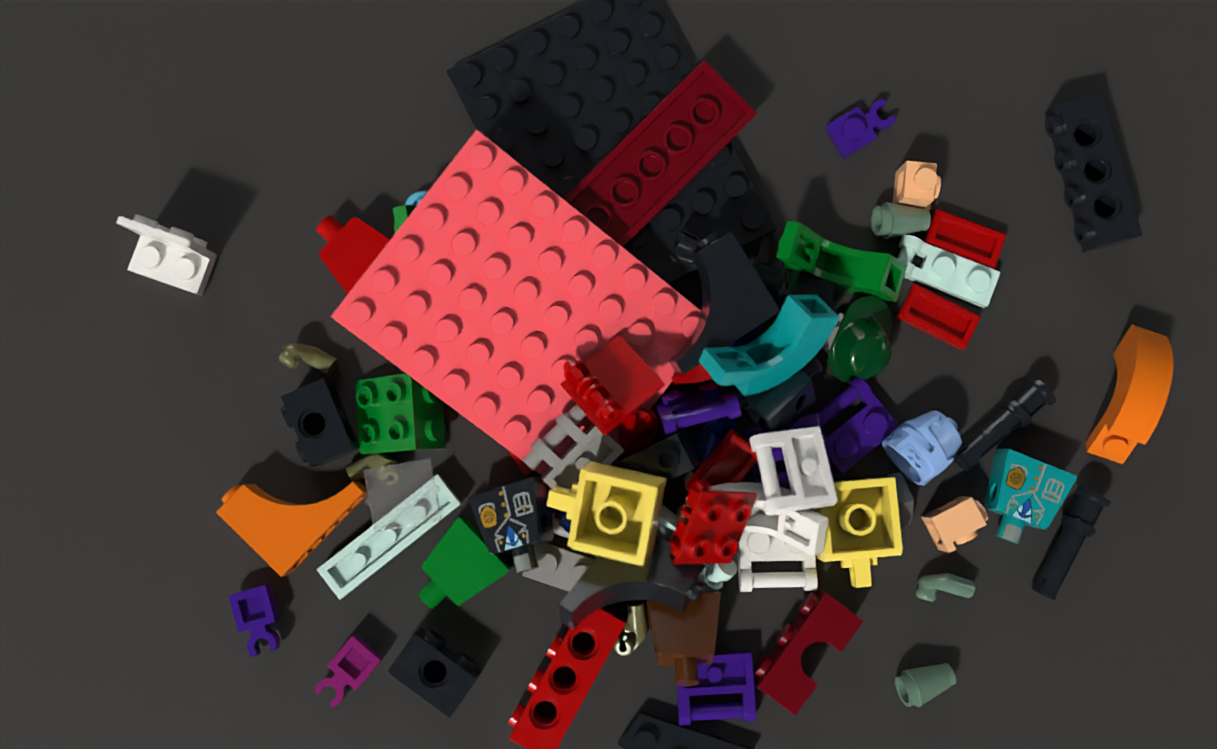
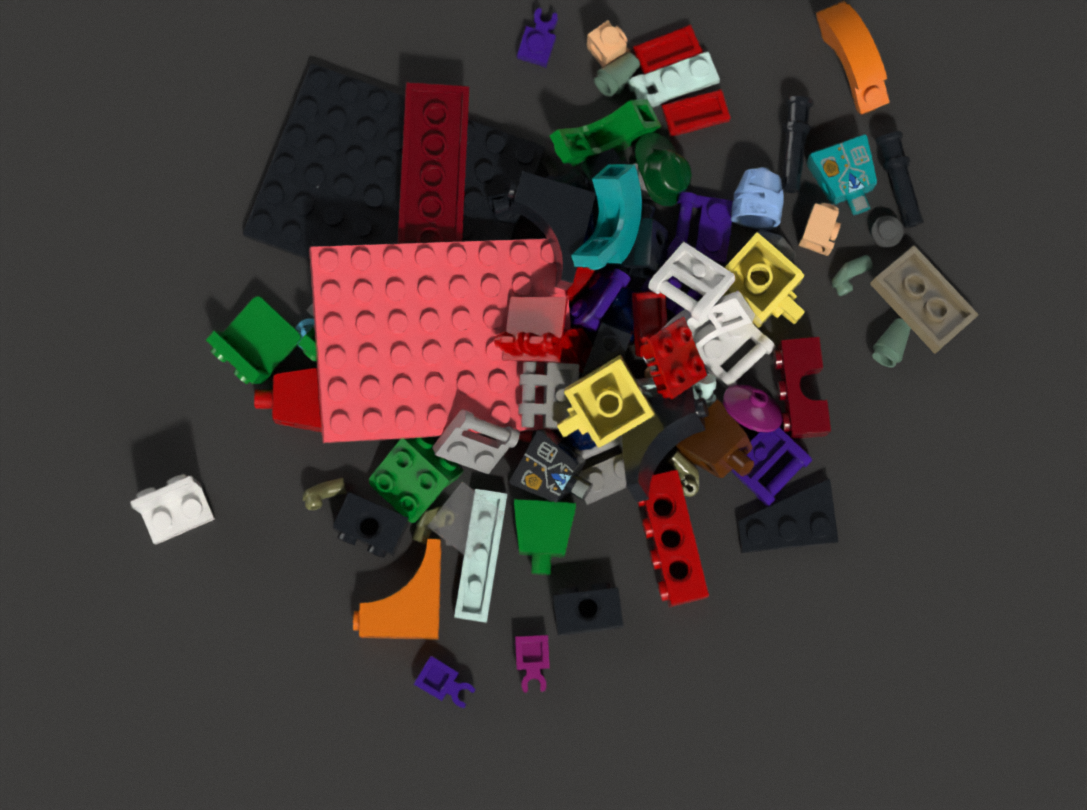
camera: 45 degrees left, 5 degrees down
(365, 173) = (255, 342): none -> green bracket
(470, 435) = (471, 448): none -> light grey plate
(744, 628) = (752, 408): none -> magenta dish
(990, 673) = (924, 299): none -> dark tan plate
(1012, 578) = (887, 231): none -> dark grey plate

